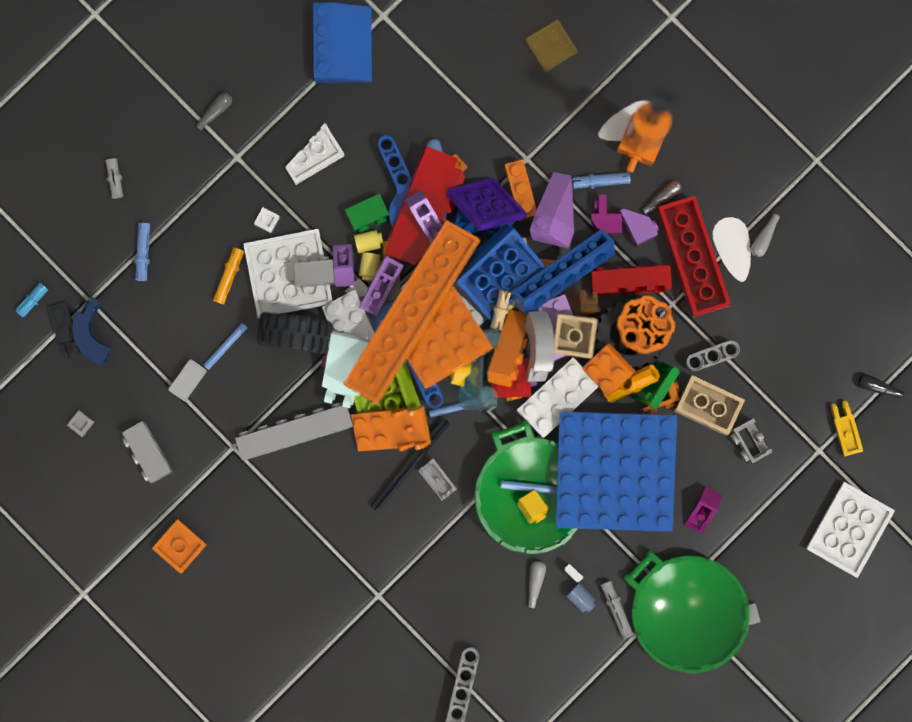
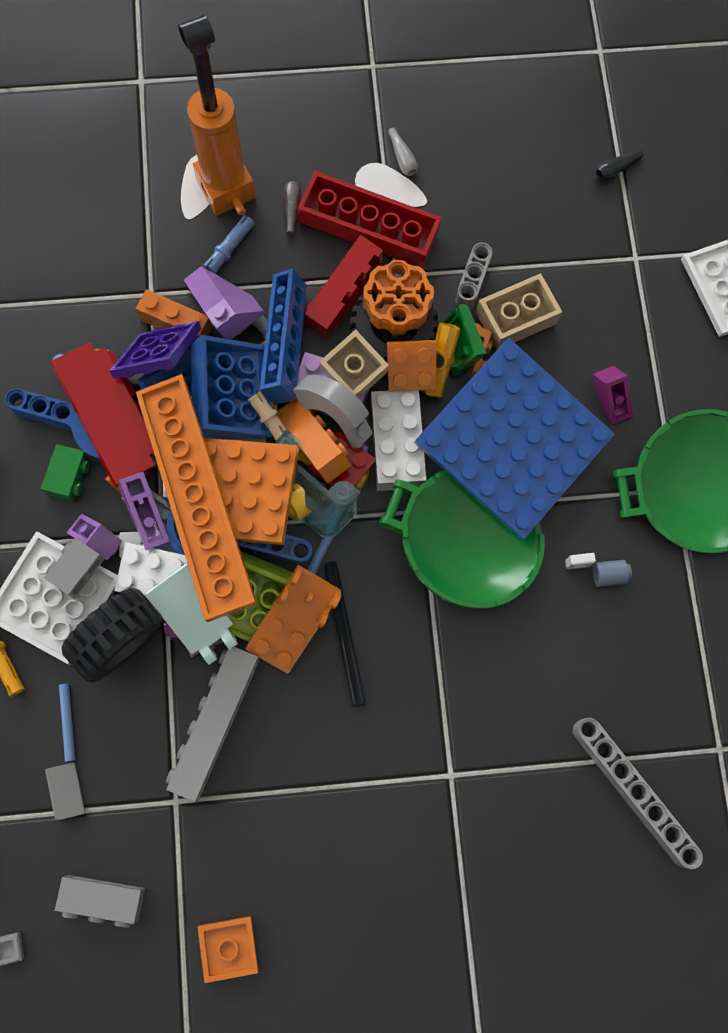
camera: 55 degrees left, 10 degrees down
(368, 241) = (92, 494): light yellow brick -> none
(369, 266) = (116, 512): light yellow brick -> none
(424, 215) = (114, 412): medium lavender slope -> none
(437, 479) = (382, 617): light grey hinge -> none
(528, 487) = (461, 534): medium blue bar -> none
(532, 507) = (485, 545): yellow brick -> none
(537, 575) = (557, 601): light grey piece -> none
(551, 45) = (69, 191): clear yellow plate -> none
(588, 306) = (327, 341): clear orange hinge -> none
(609, 223) = (263, 269): magenta brick -> none
(616, 609) = (673, 556): light grey pin -> none
(639, 227) = (298, 245): medium lavender slope -> none
(756, 436) = (590, 316): light grey window -> none
(846, 430) = (634, 218): yellow hinge -> none

